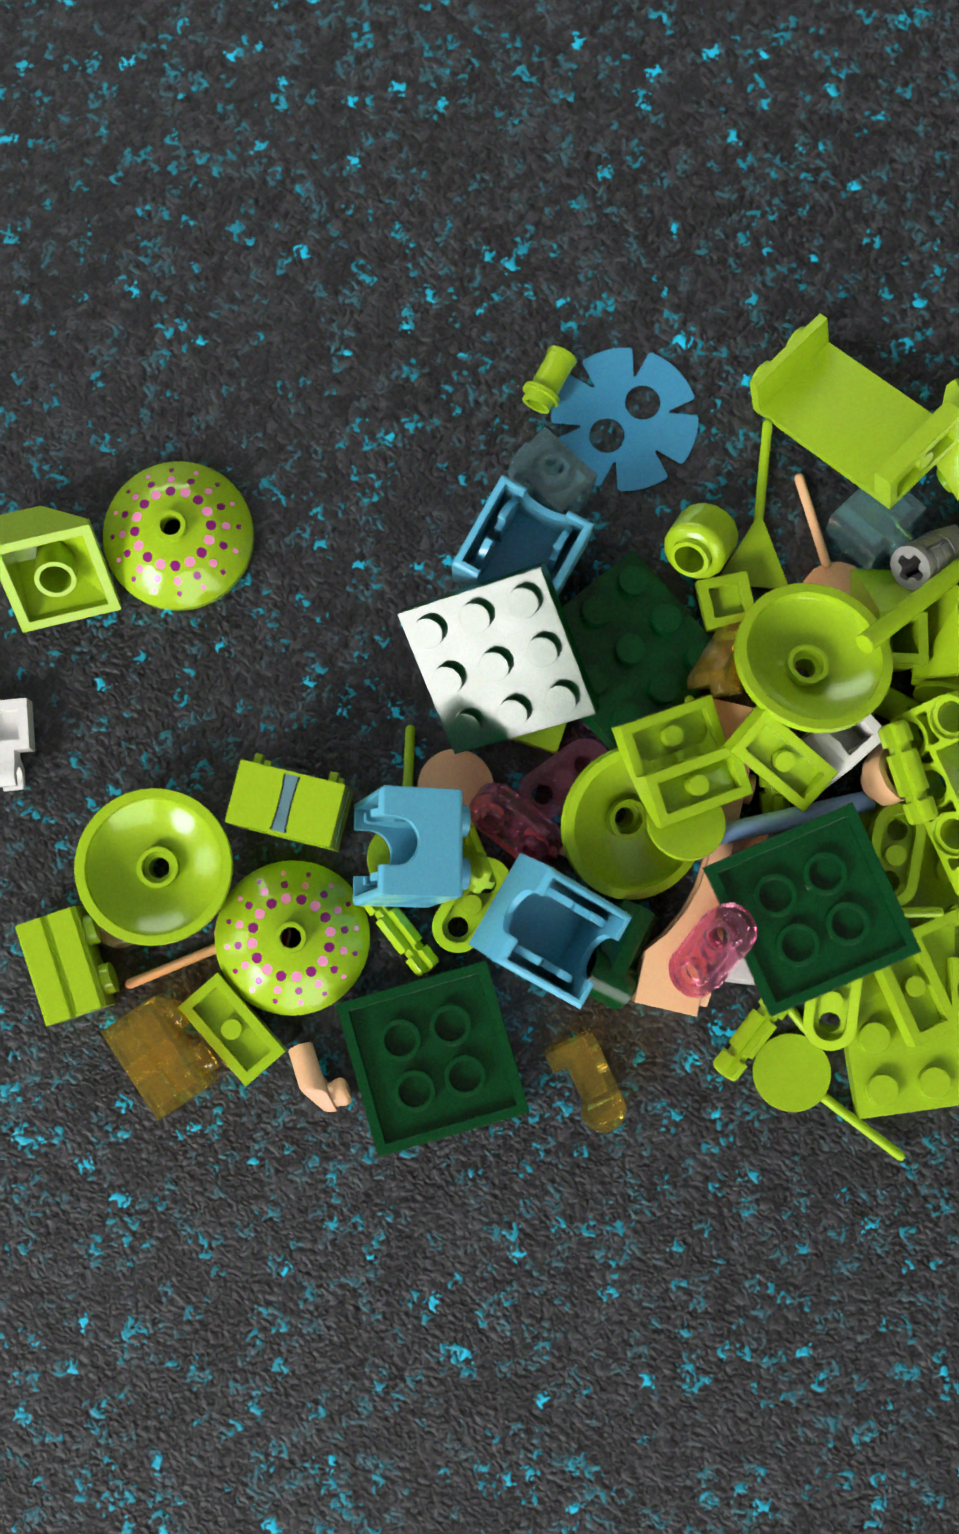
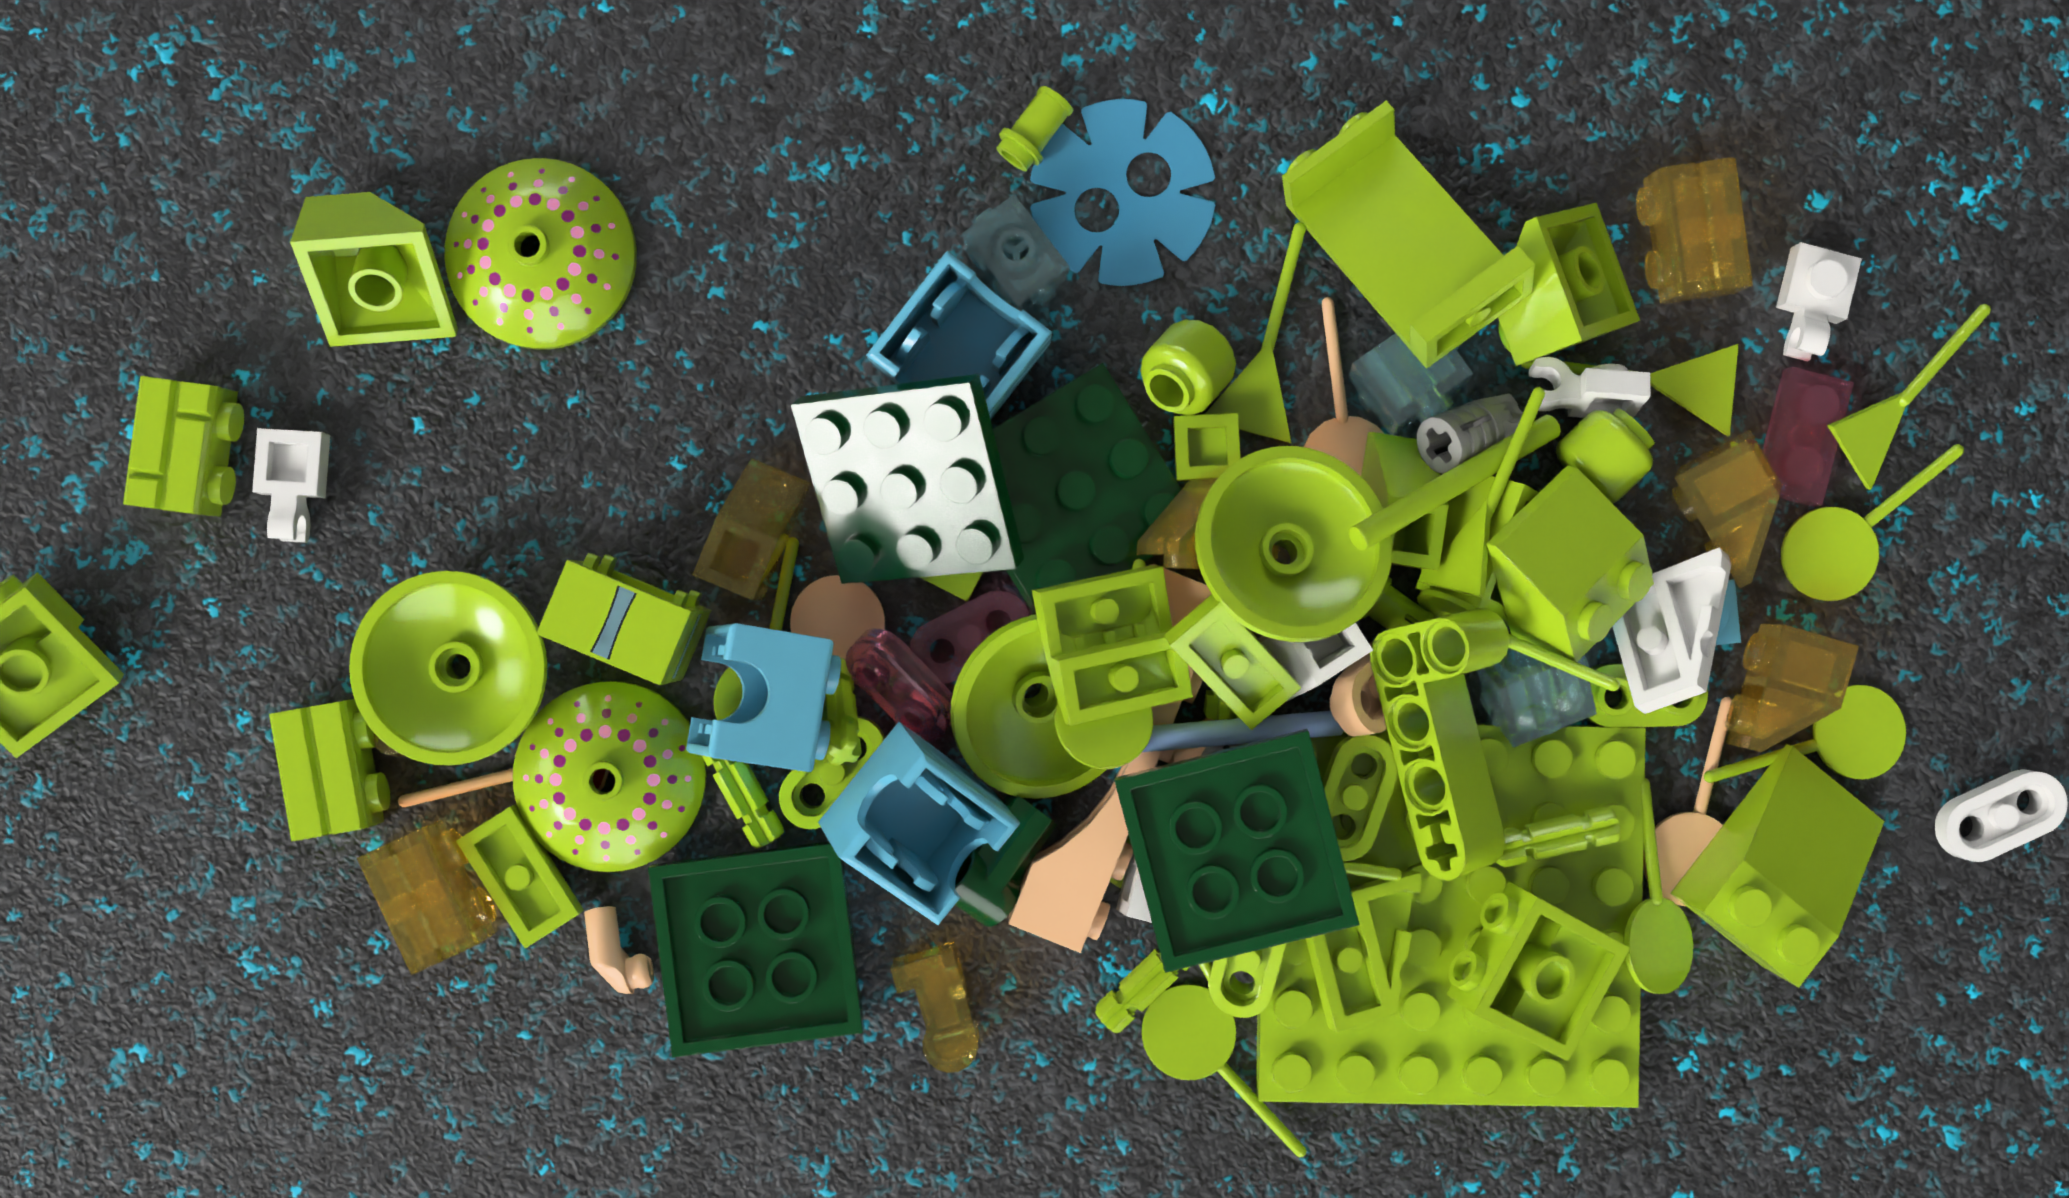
camera: 10 degrees right, 5 degrees up
(378, 722) = (752, 530): none -> clear yellow slope
(709, 953) = (1104, 884): clear pink plate -> none
(908, 772) = (1385, 702): lime axle -> none

